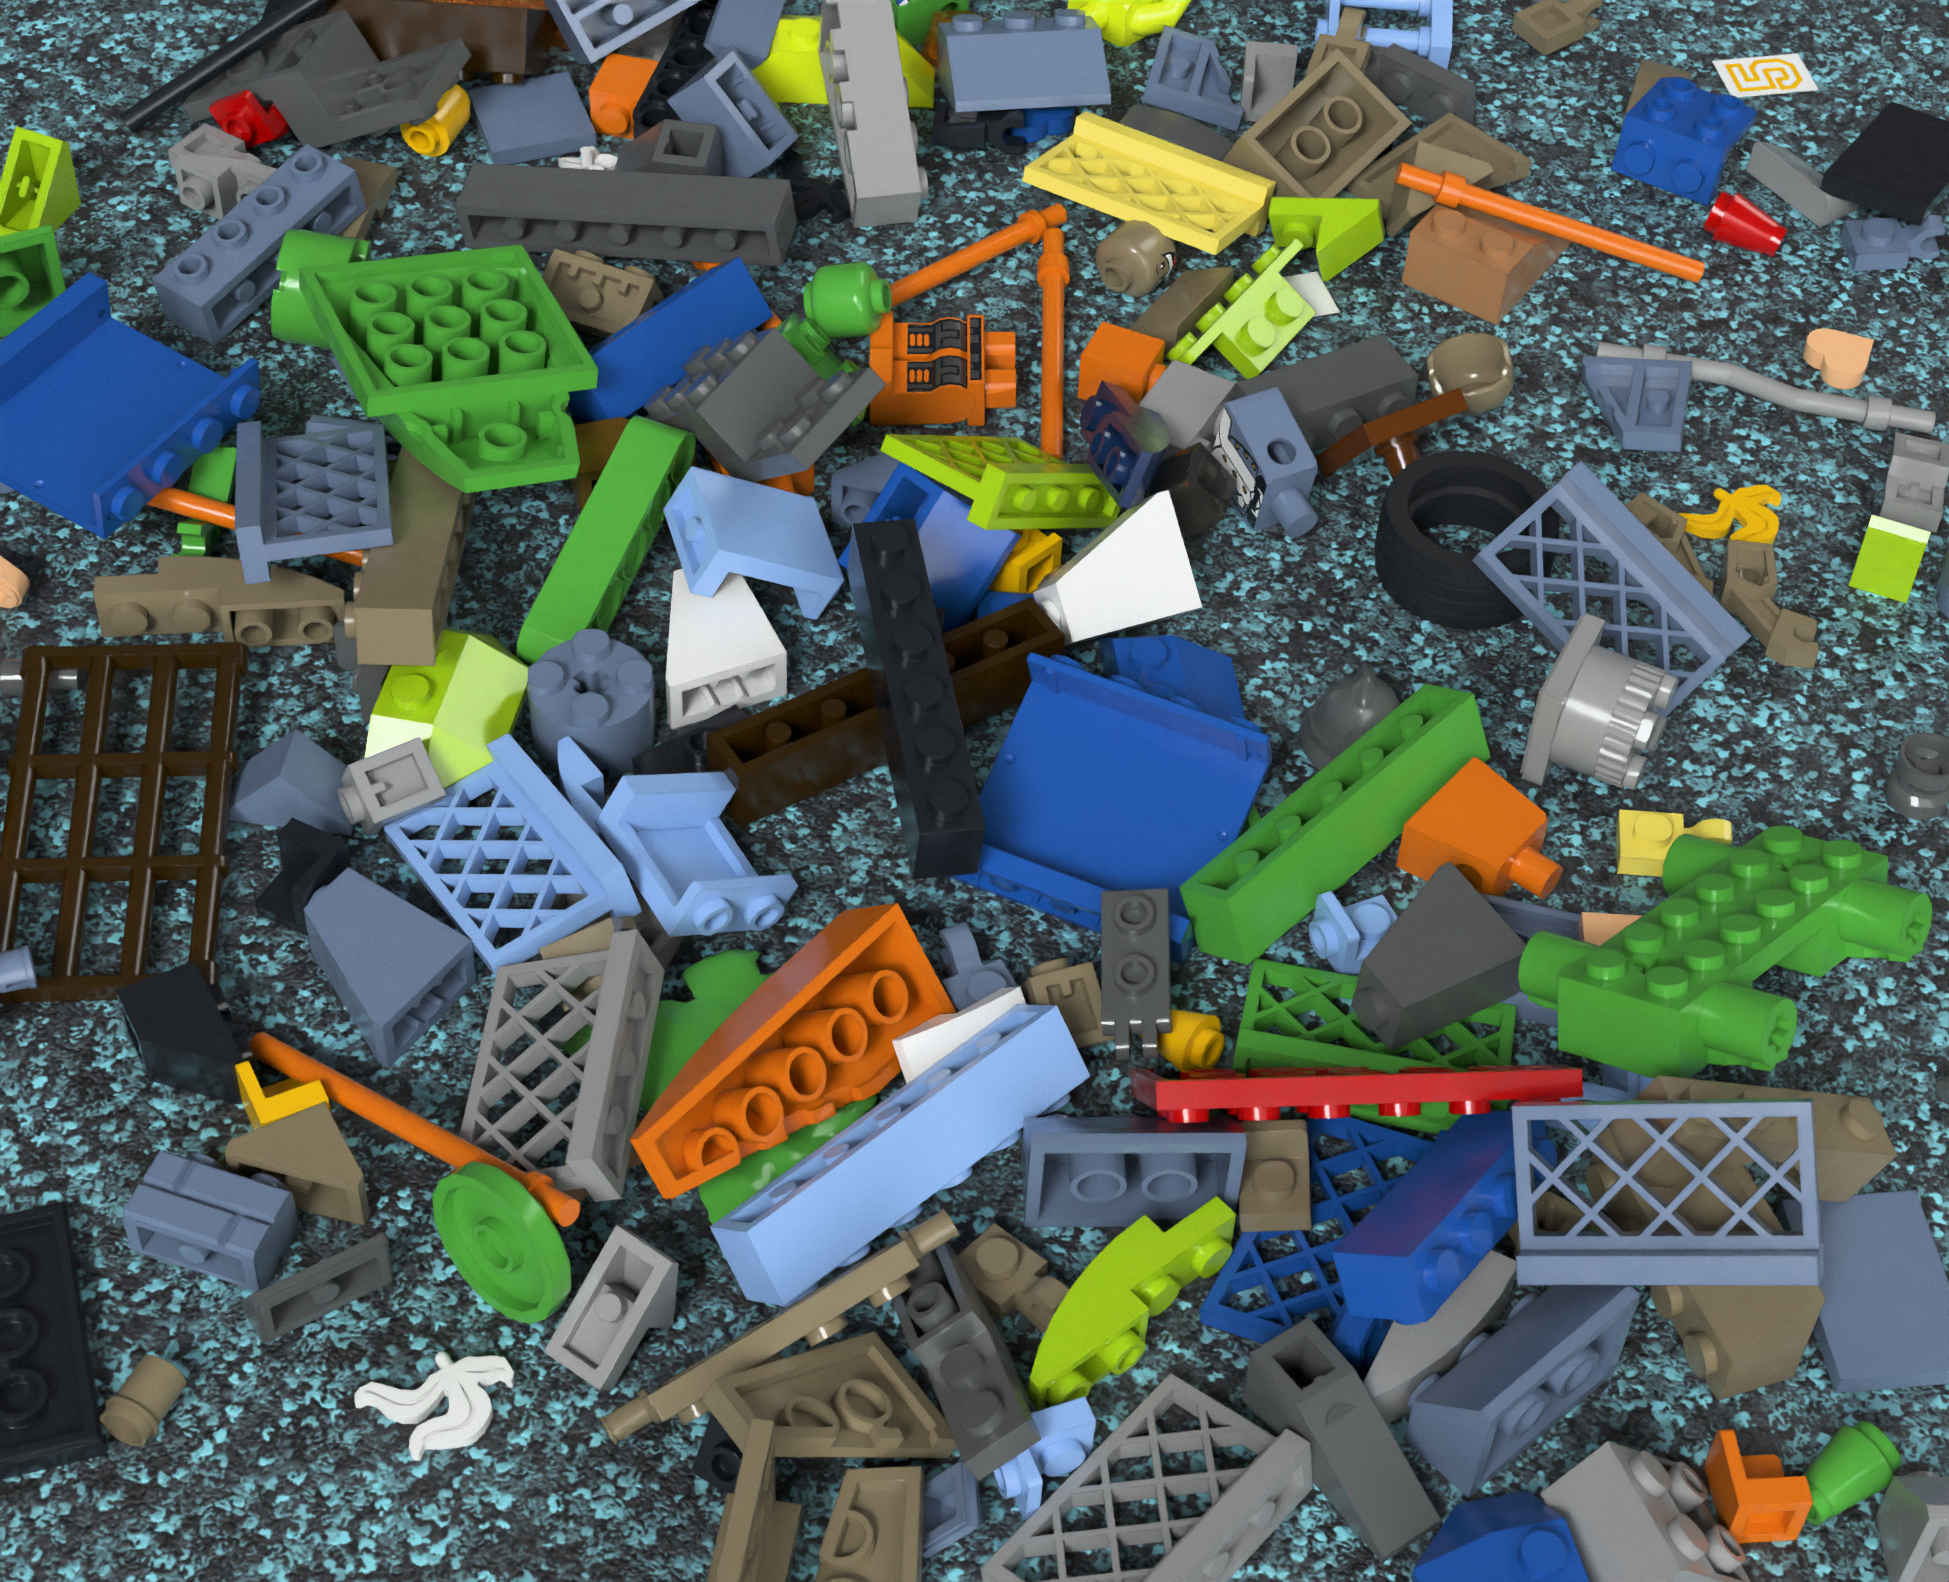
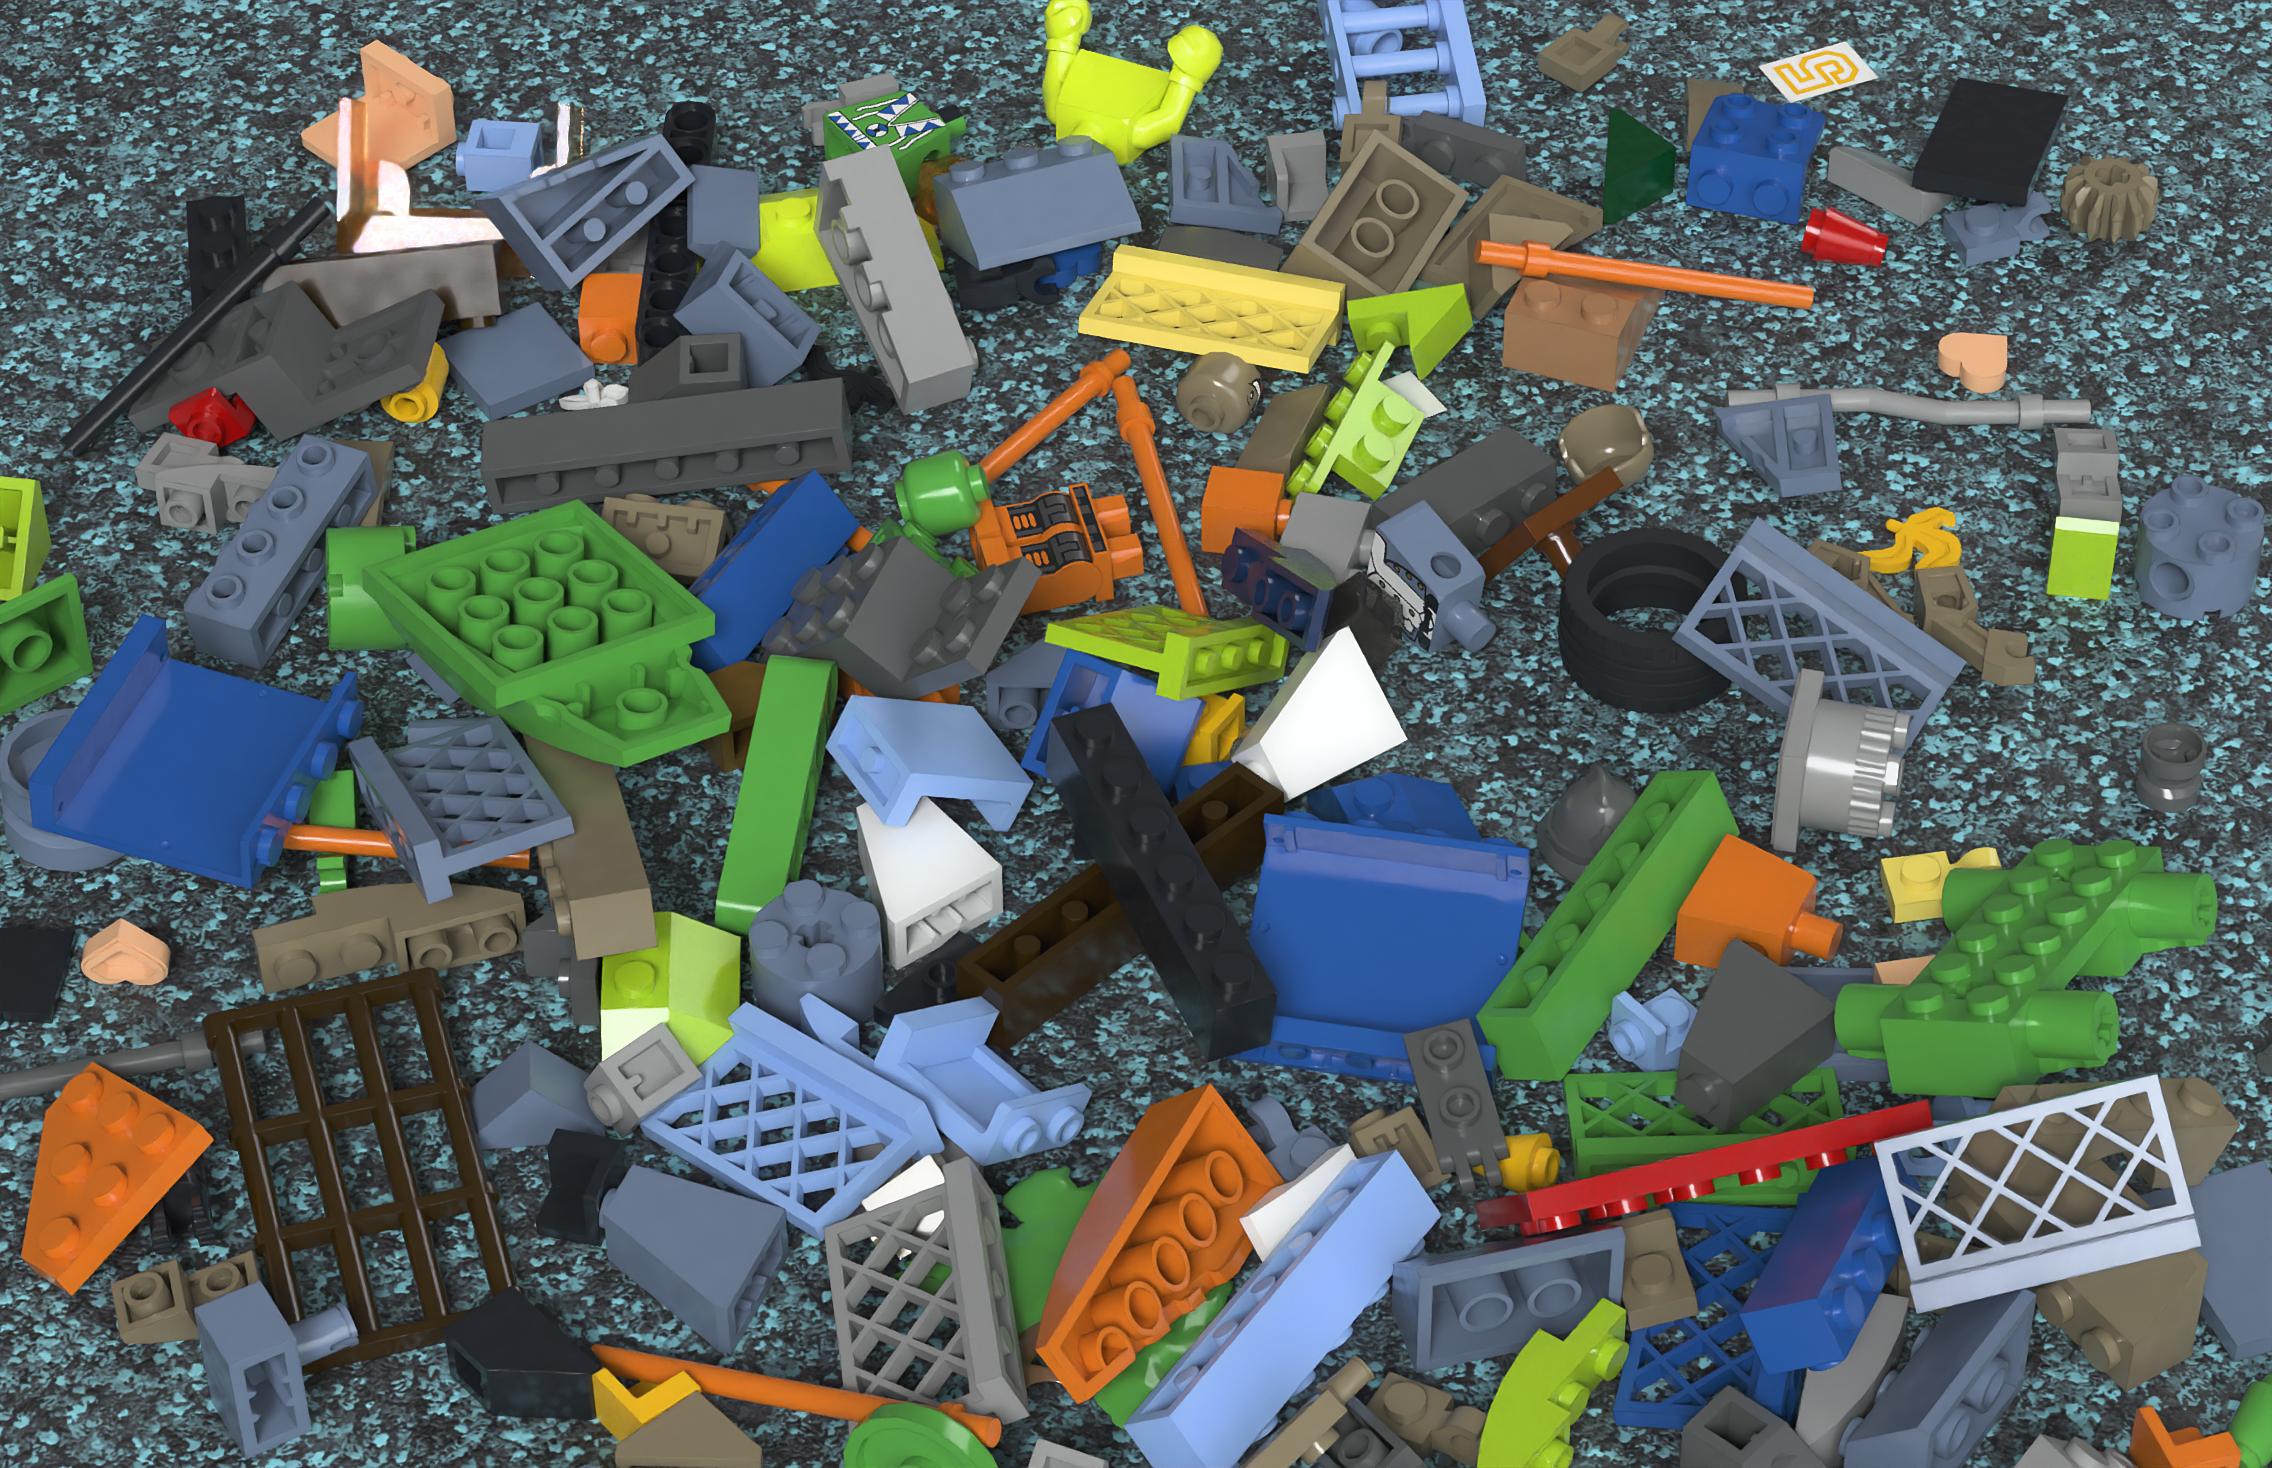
camera: 10 degrees left, 5 degrees down
(1572, 128) = (1636, 168): none -> dark green slope

